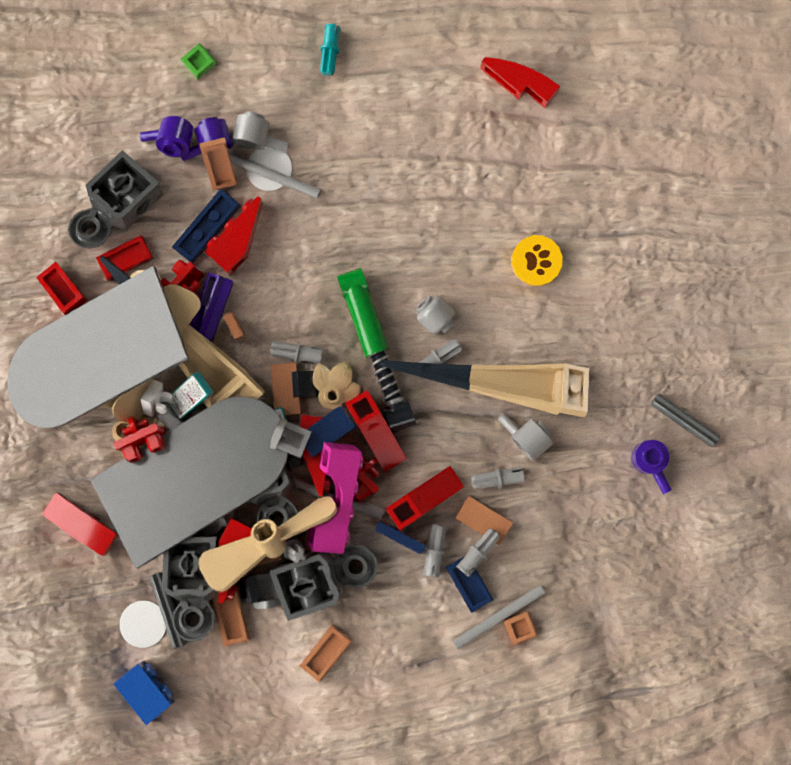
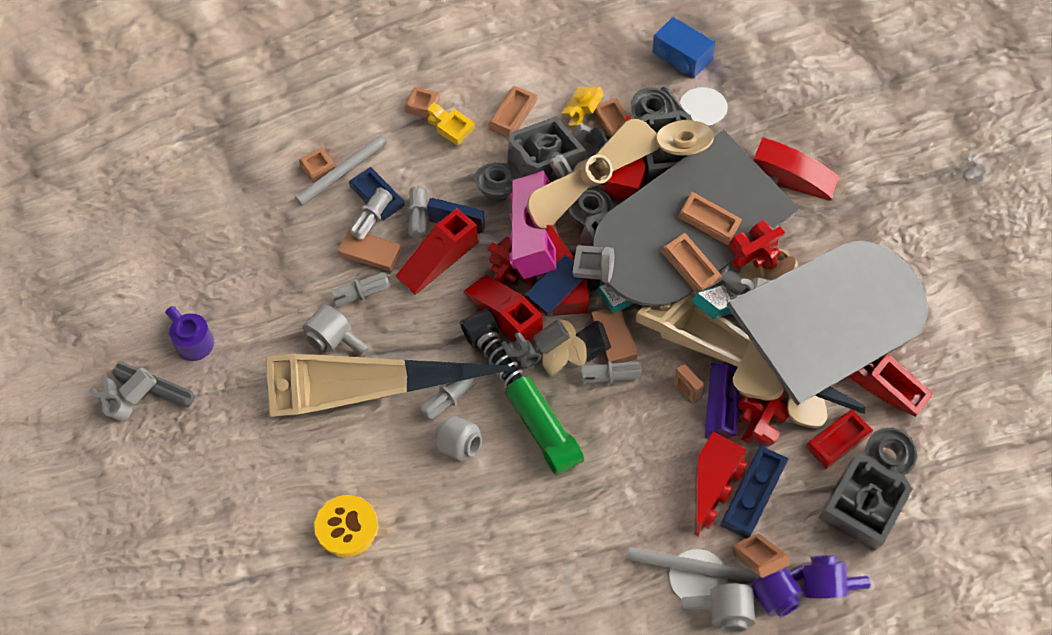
camera: 170 degrees right, 25 degrees down
(174, 567) = (685, 137): none -> tan dish
(175, 473) = (709, 218): none -> nougat tile
(203, 429) = (691, 263): none -> nougat tile
(257, 646) = (582, 102): none -> yellow plate
(353, 384) = (530, 351): none -> dark grey bar
(385, 643) = (451, 126): none -> yellow plate
(411, 682) = (420, 101): none -> nougat tile
(714, 404) = (118, 404): none -> light grey bar

